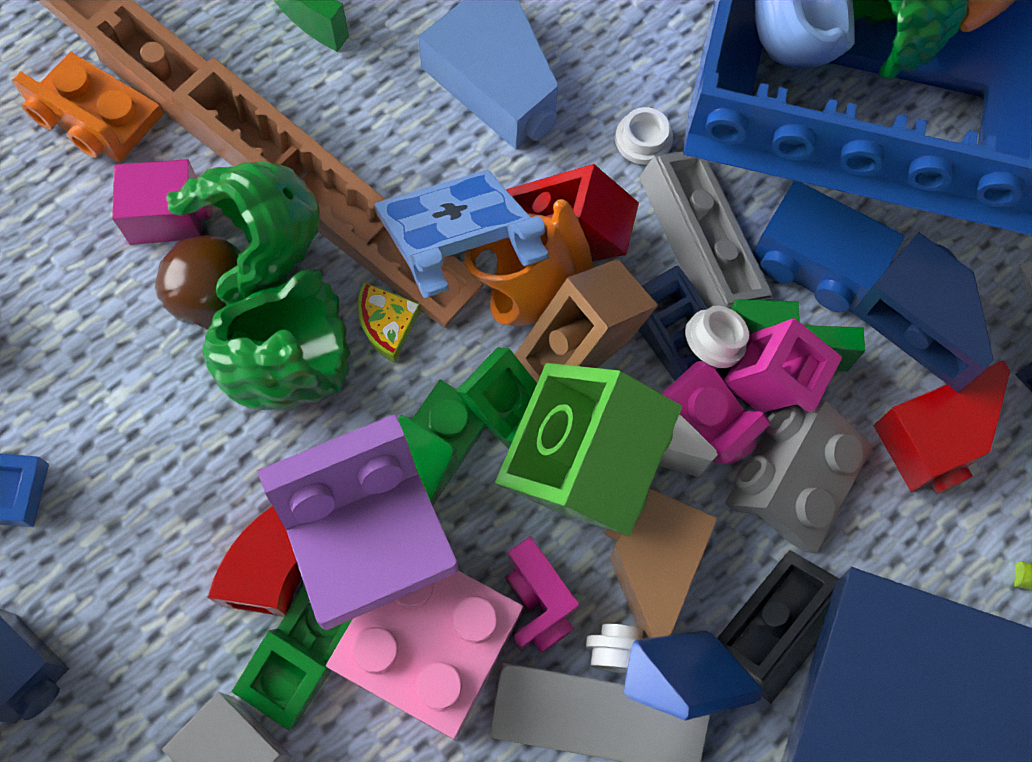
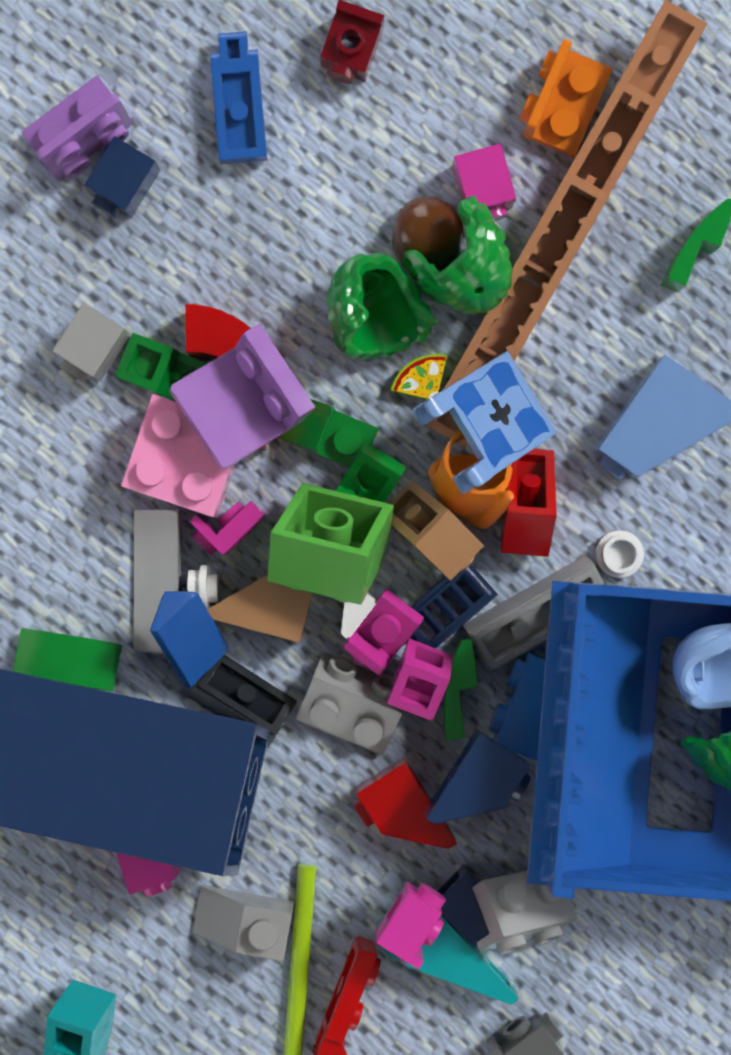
camera: 90 degrees right, 20 degrees up
(717, 336) = (439, 628): white plate -> none

